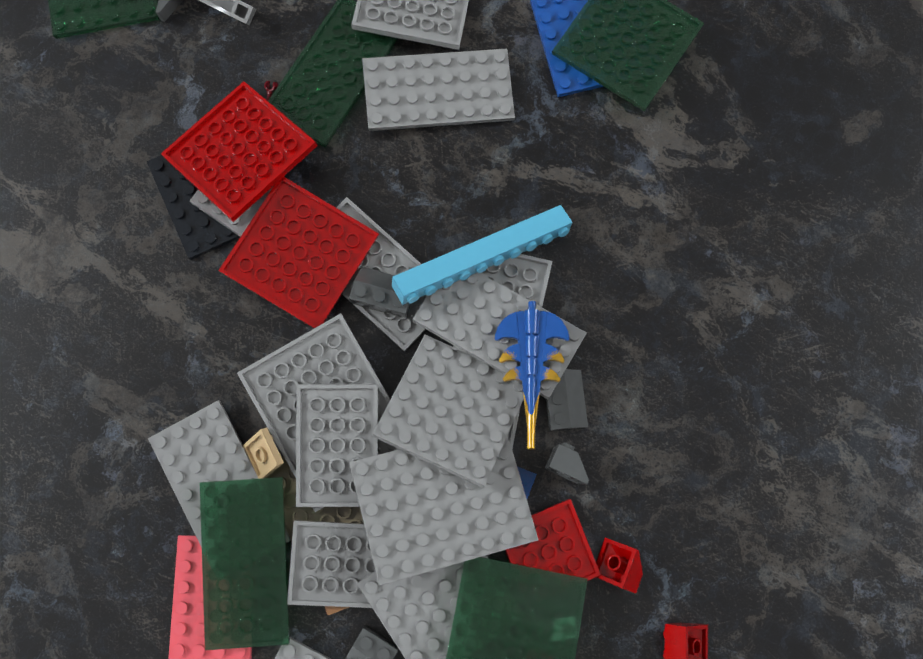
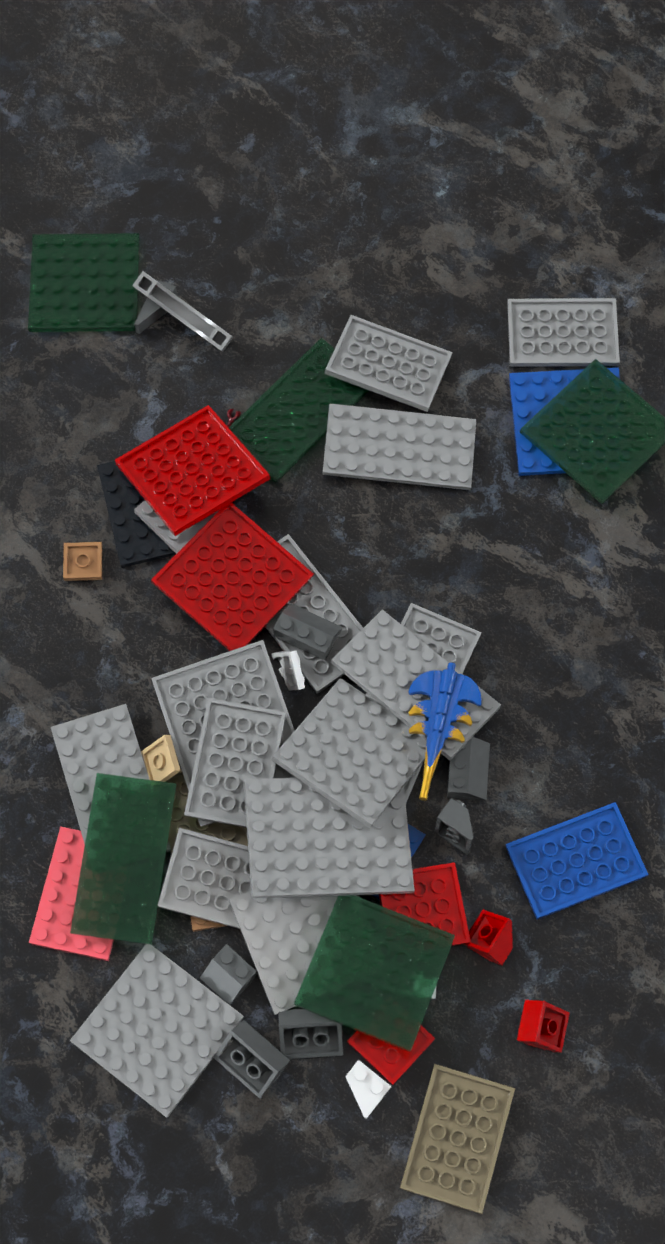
camera: 10 degrees right, 10 degrees down
(150, 261) = (82, 561): none -> medium nougat plate
(374, 333) = (290, 669): none -> white wing
(480, 255) = (411, 611): medium azure brick -> none
(686, 472) = (576, 860): none -> blue plate

